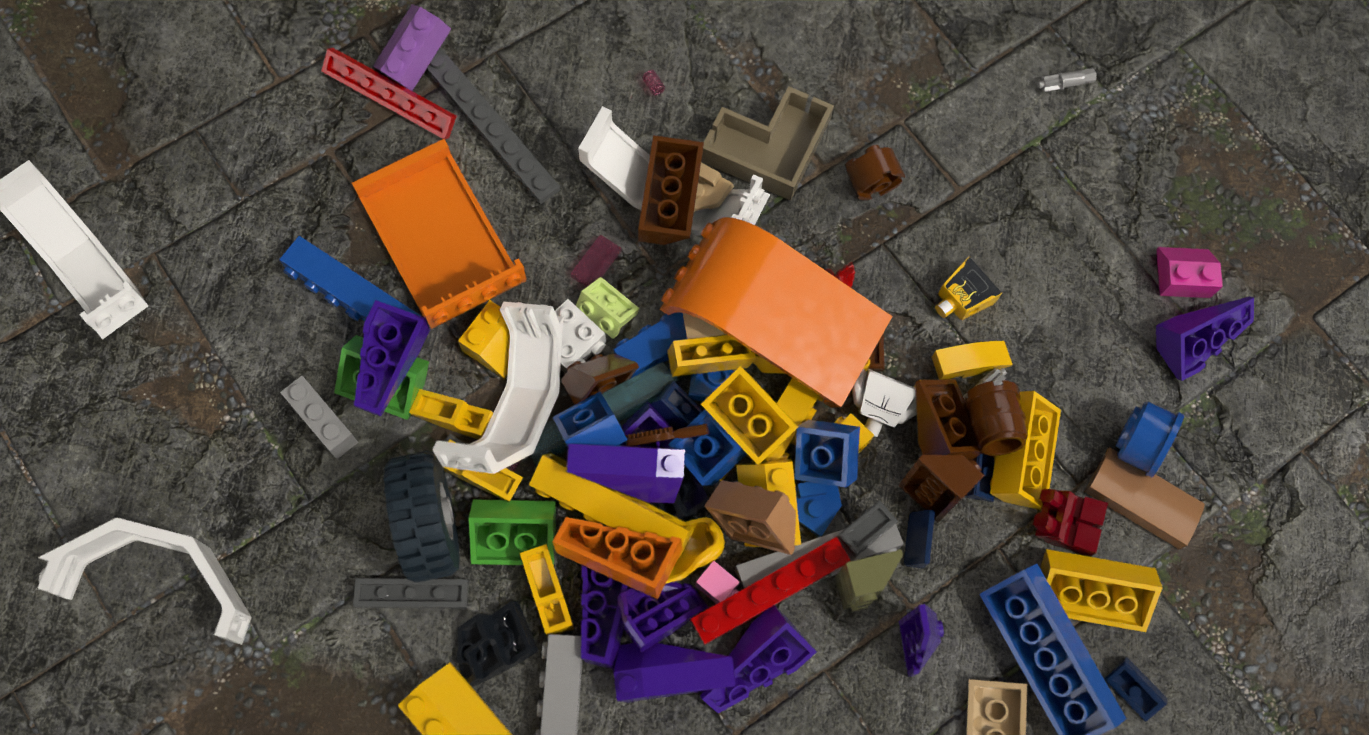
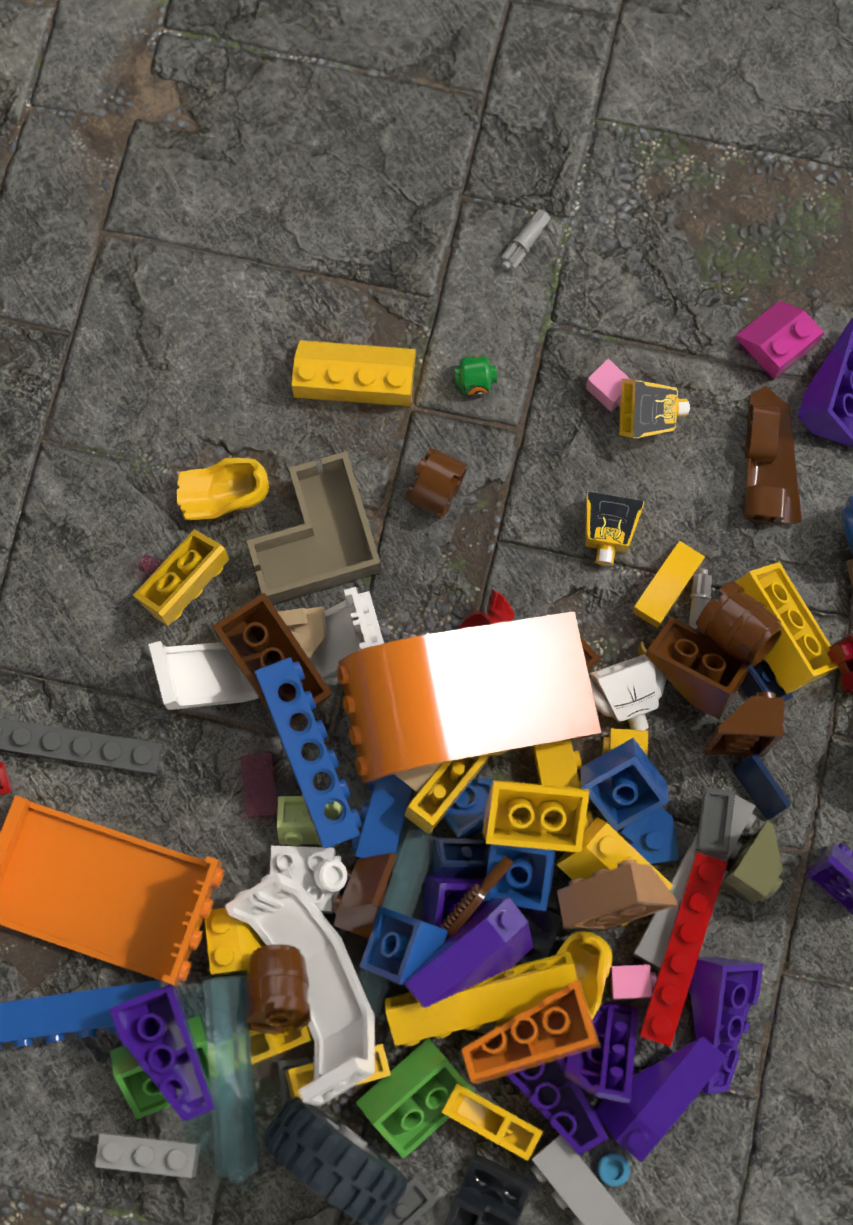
camera: 35 degrees left, 5 degrees up
(411, 412) = (231, 1078): none -> clear light blue brick
(488, 383) = (277, 989): none -> reddish brown piece
(586, 346) = (330, 875): none -> white tile
(596, 693) = (613, 1169): none -> dark azure tile
(658, 191) = (328, 830): none -> blue brick
(663, 100) = (182, 577): none -> yellow slope
(741, 71) = (221, 488): none -> yellow hair
(881, 71) = (353, 373): none -> yellow slope
(959, 132) = (475, 375): none -> green head
(1043, 208) = (606, 384): none -> bright pink brick
(1059, 239) = (649, 408): none -> torso
(1111, 343) = (771, 471): none -> reddish brown panel

